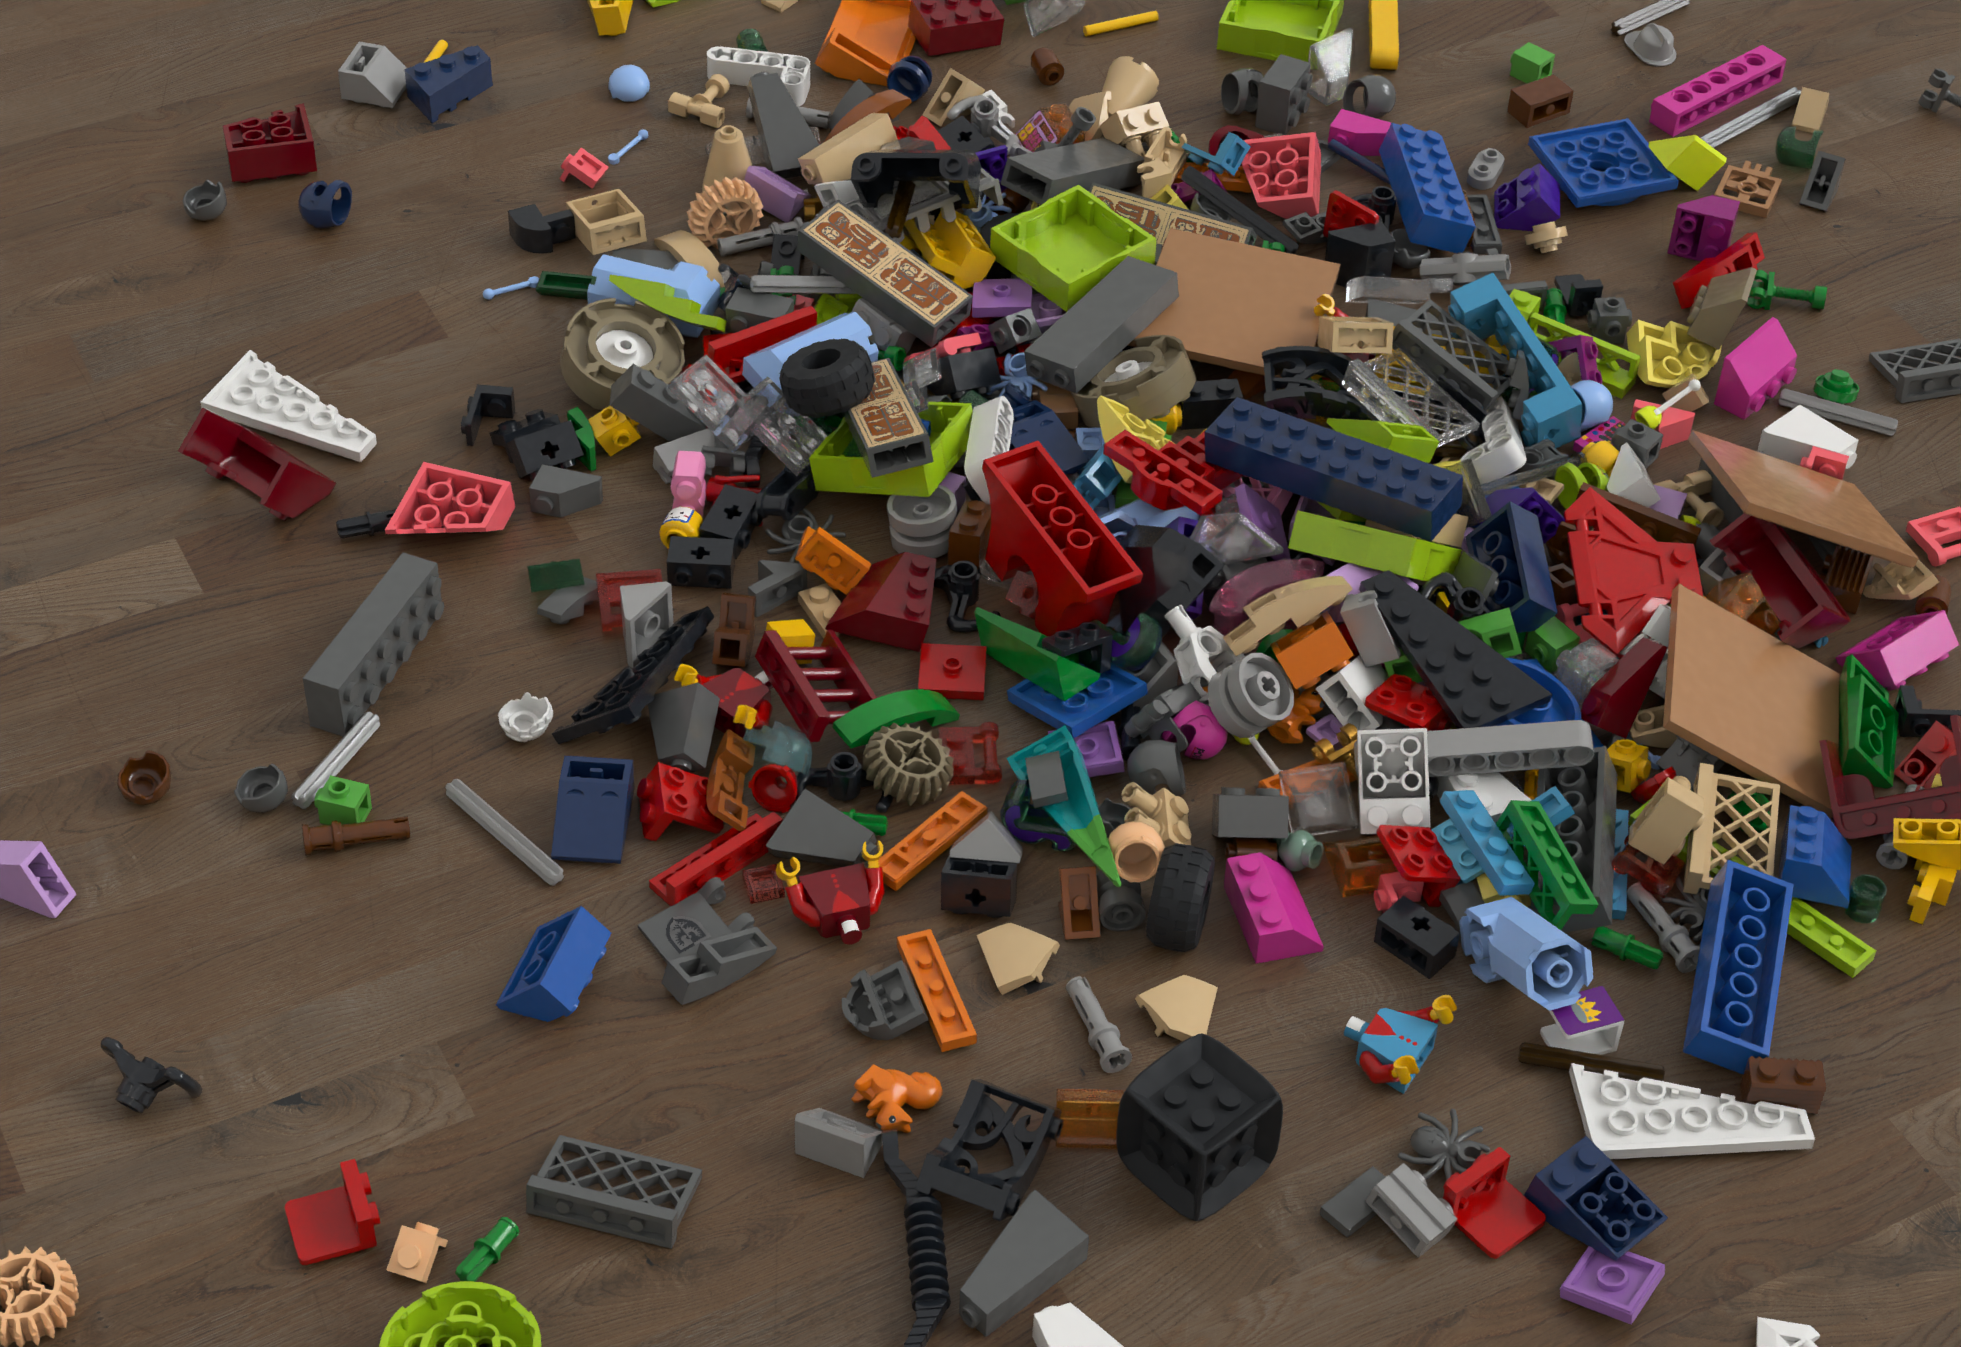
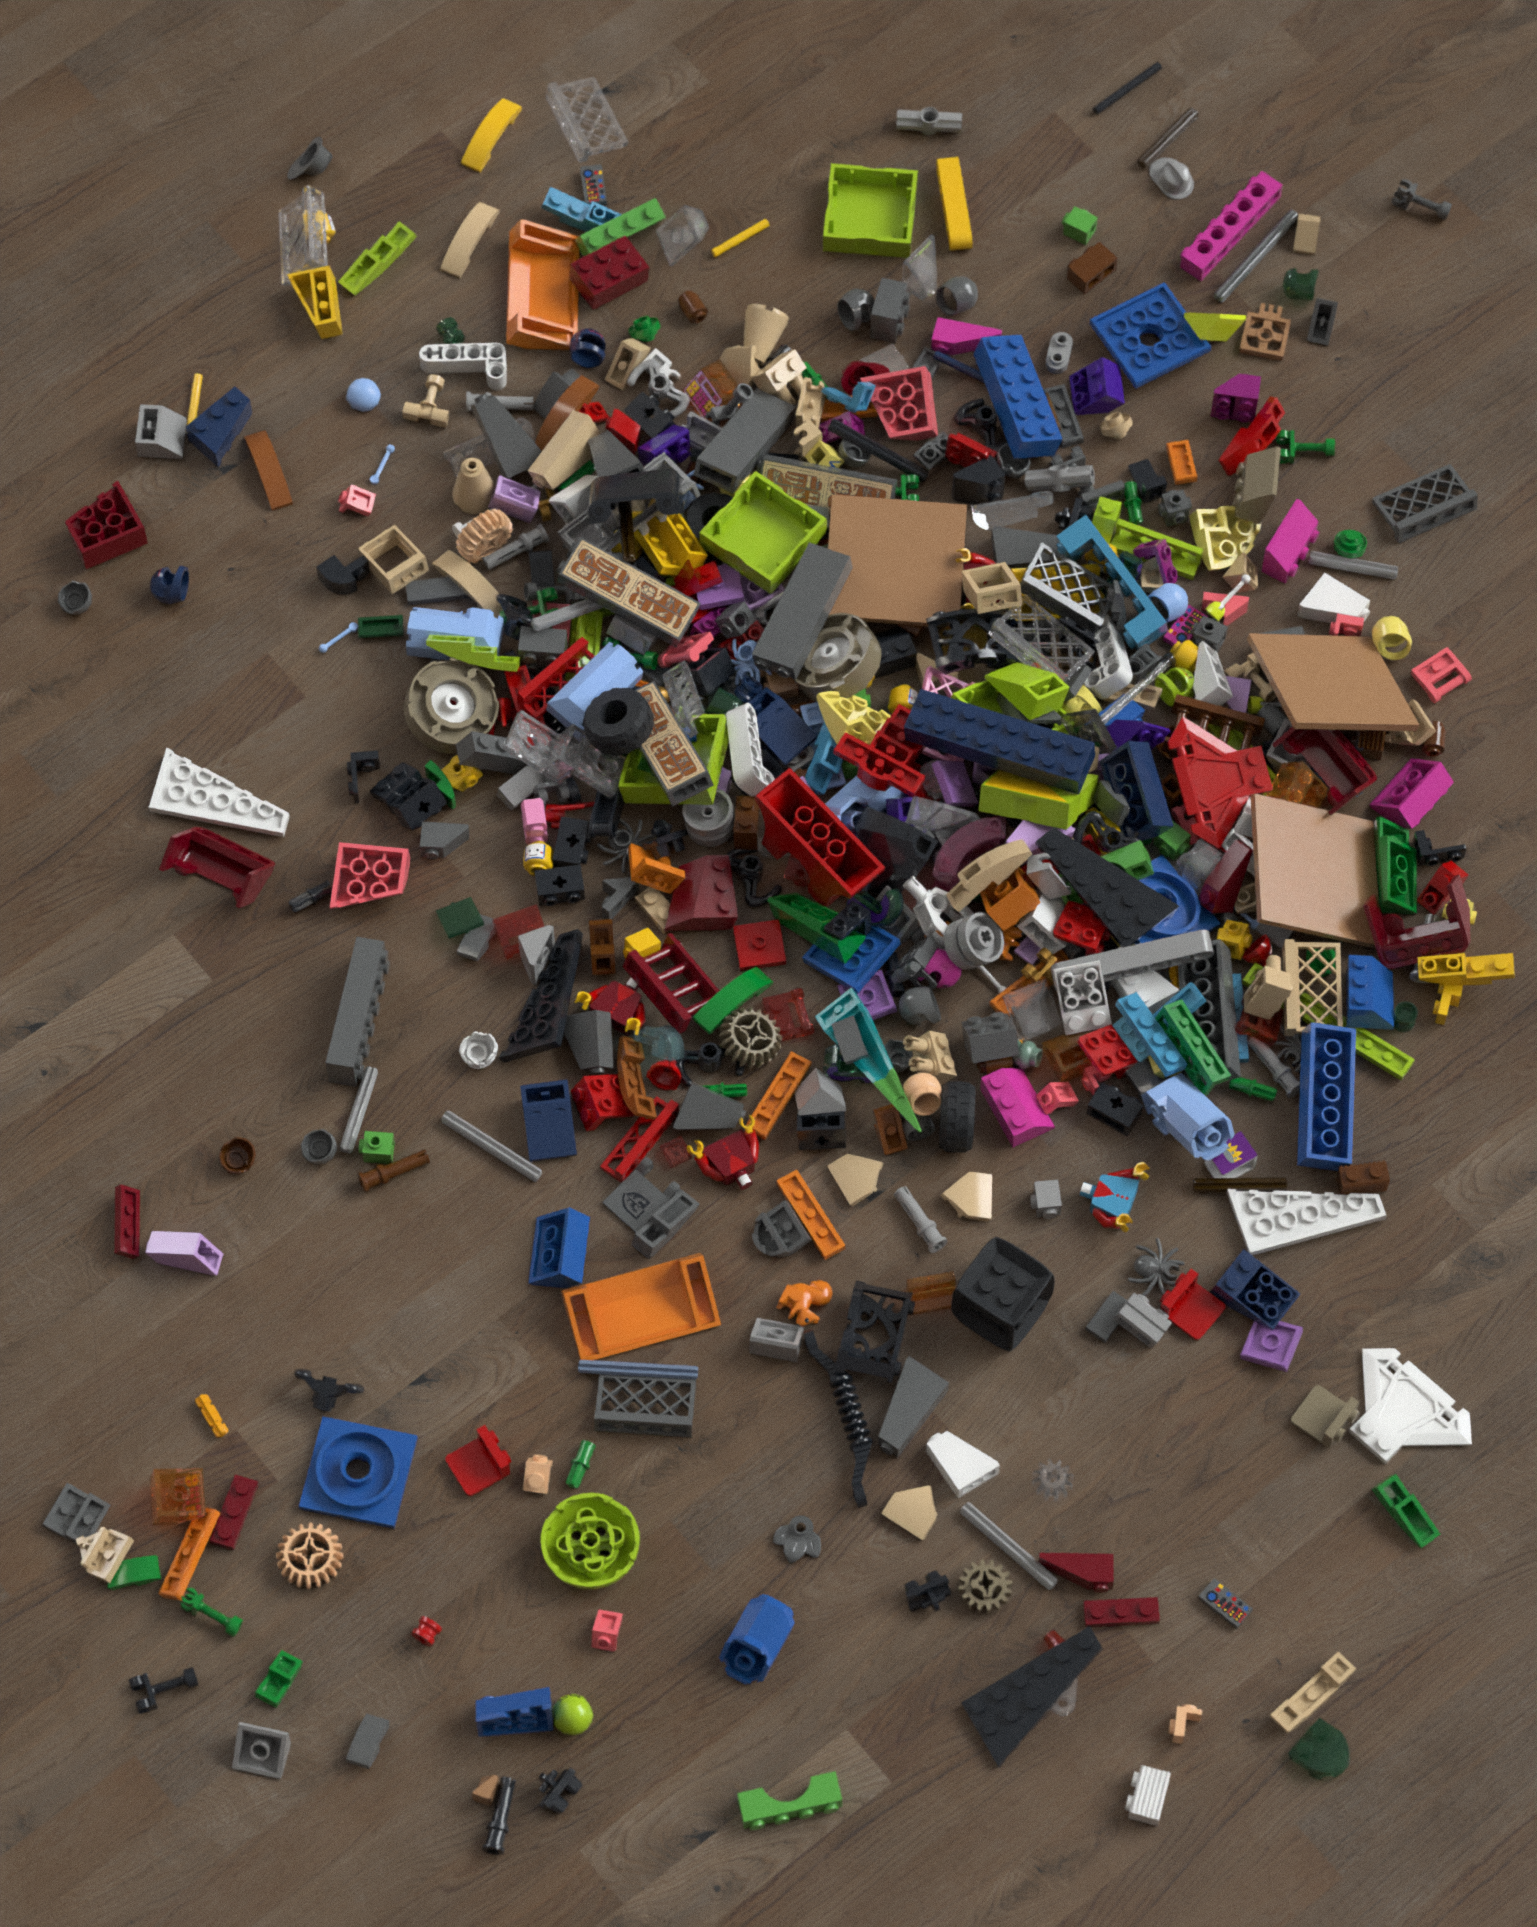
camera: 10 degrees left, 20 degrees up
(155, 1235) = (369, 1499): none -> blue piece
(490, 133) = (269, 470): none -> dark orange slope
(618, 1139) = (637, 1369): none -> sand blue axle
(648, 1061) = (641, 1307): none -> orange slope
(856, 530) = (661, 830): none -> black hips
(979, 282) = (695, 580): none -> red slope
(984, 73) = (644, 328): none -> green plate
(1293, 1029) = (1046, 1199): none -> light grey brick
(1335, 904) = (1056, 1095): none -> coral bracket
(1450, 452) = (1076, 681): none -> dark grey tile
(1624, 282) = (1181, 462): none -> orange plate
(1883, 481) = (1391, 632): none -> light yellow helmet

